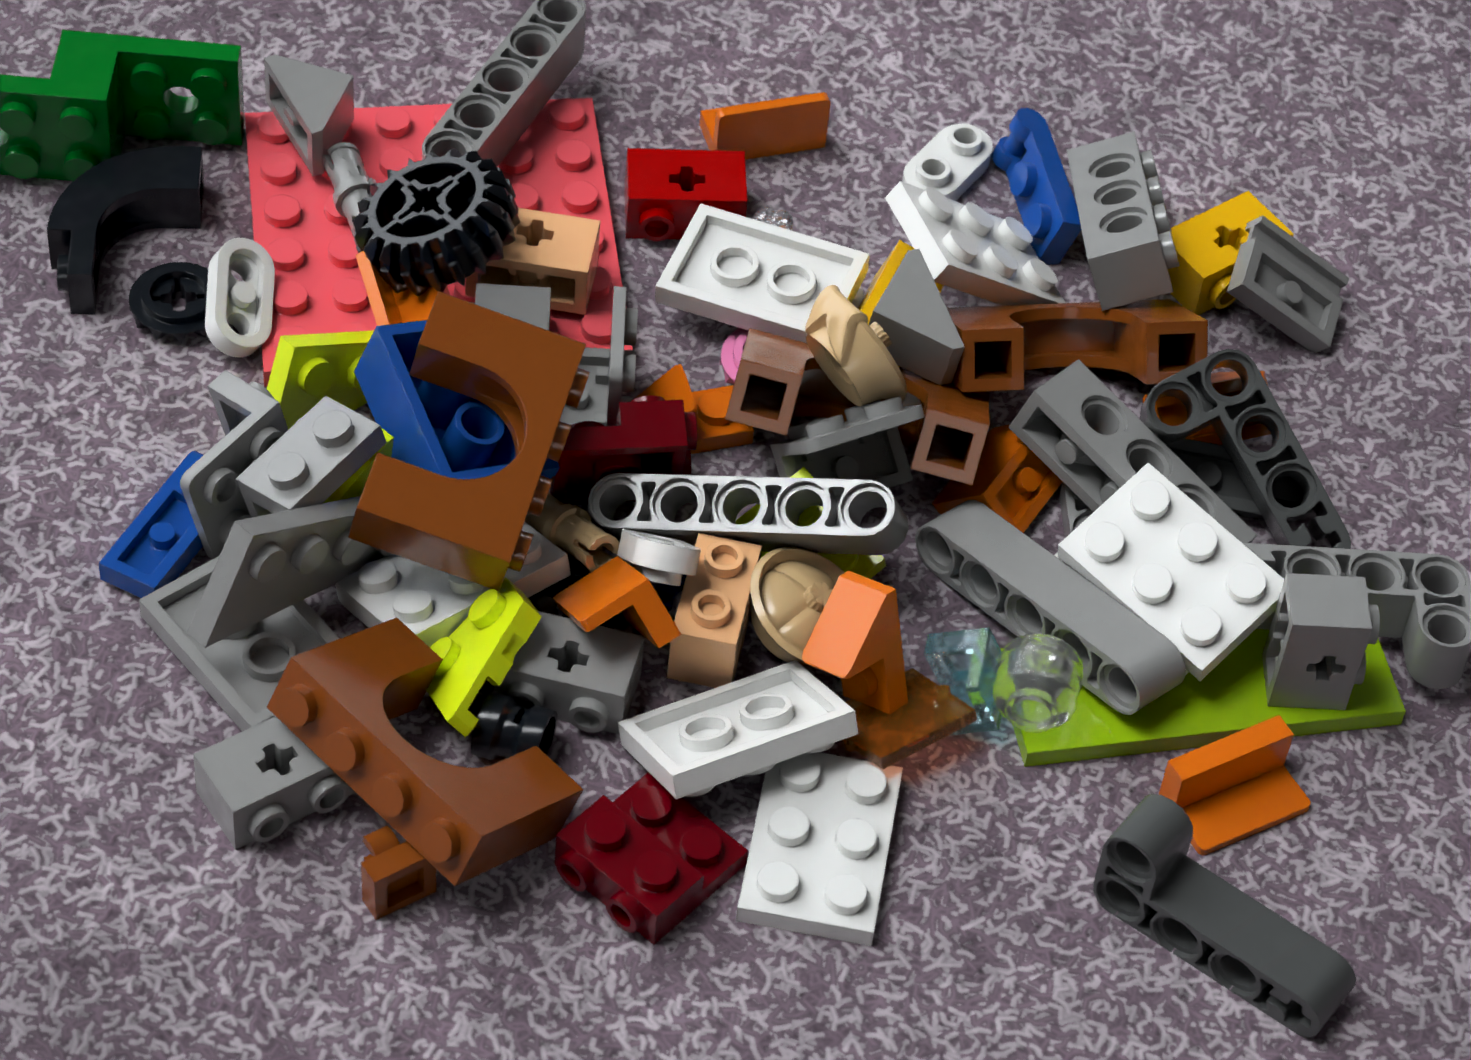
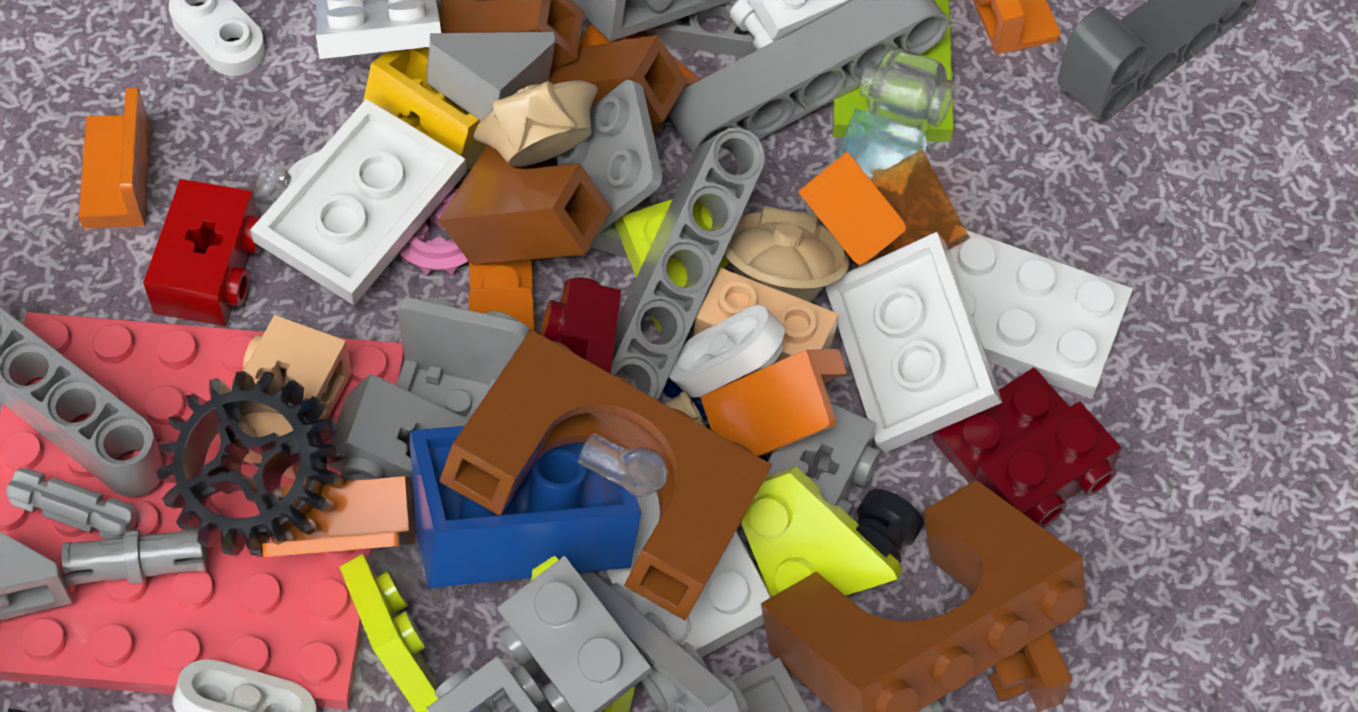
camera: 75 degrees left, 10 degrees up
(399, 139) = (70, 504): none -> light grey axle
(487, 457) = (635, 469): none -> clear arm

